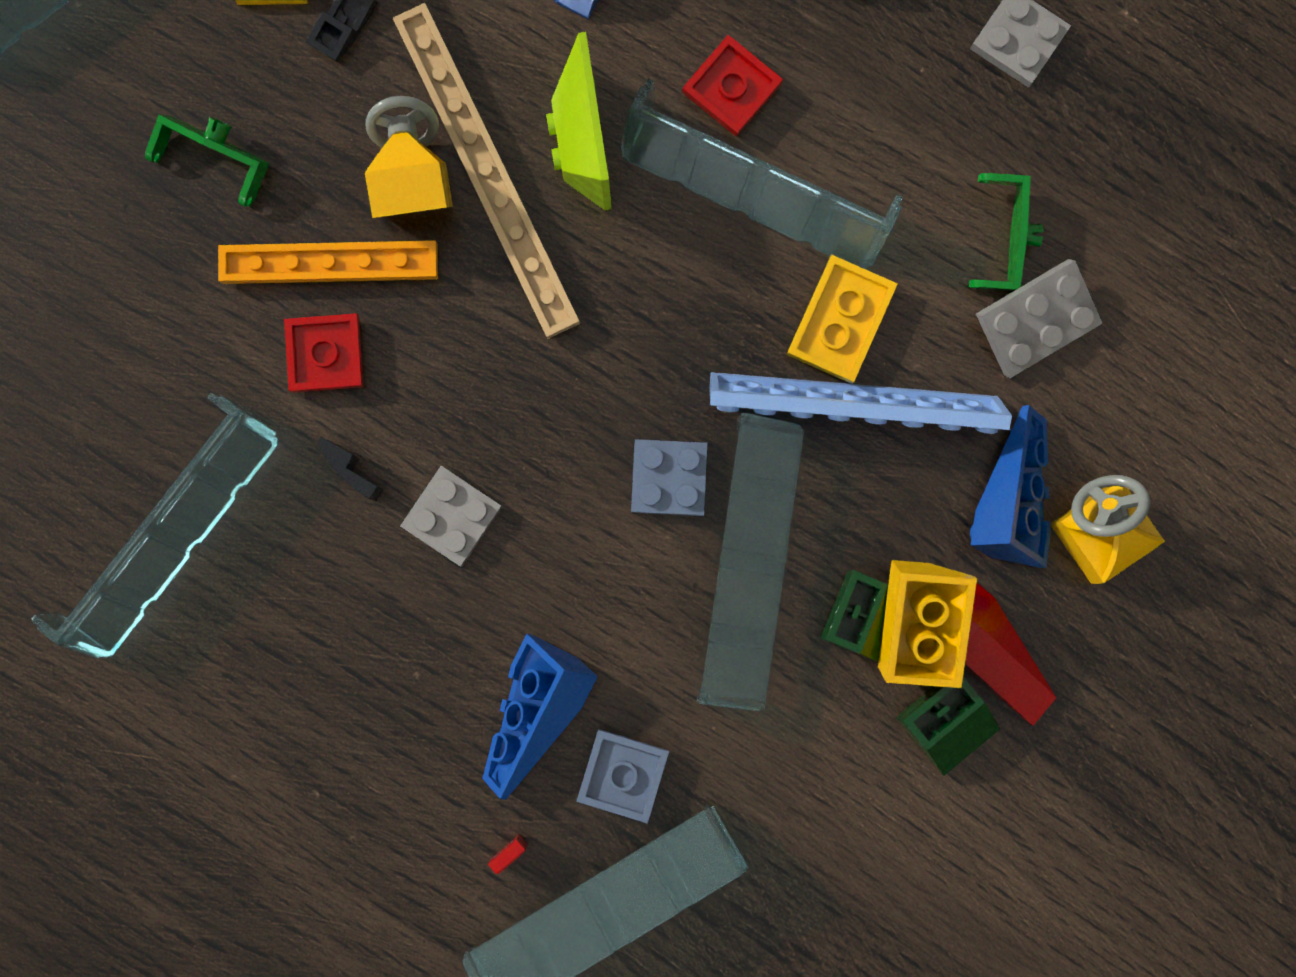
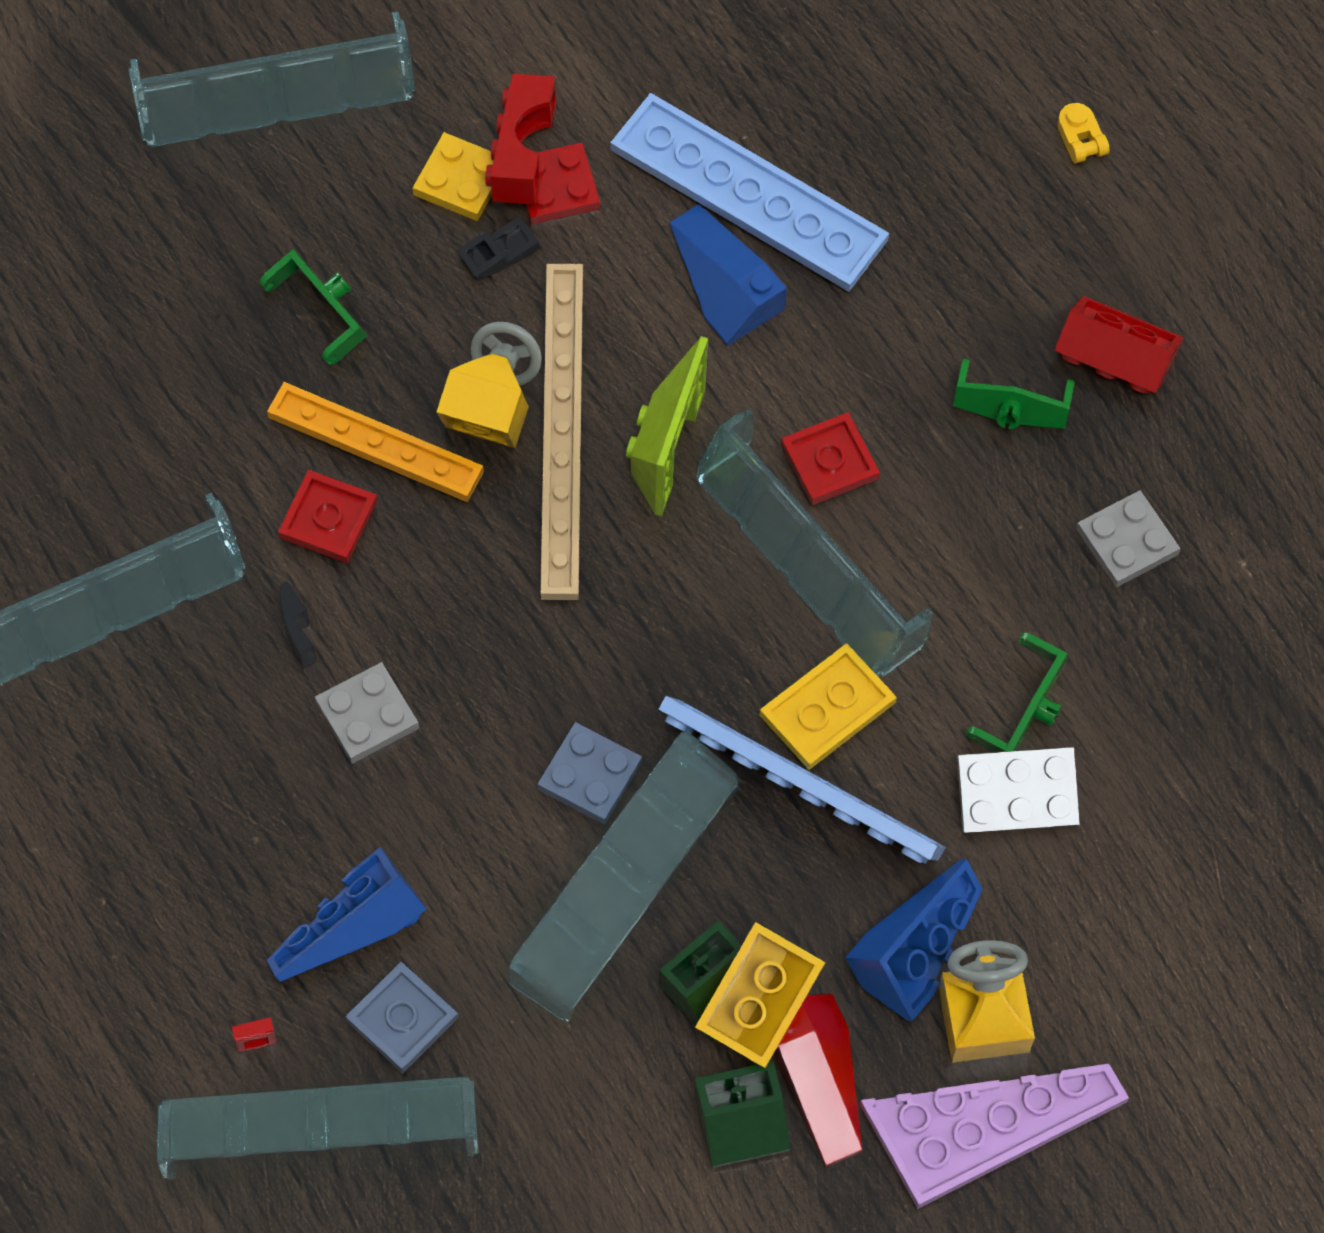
camera: 25 degrees right, 20 degrees down
(1137, 641) = (974, 1128): none -> lavender wing

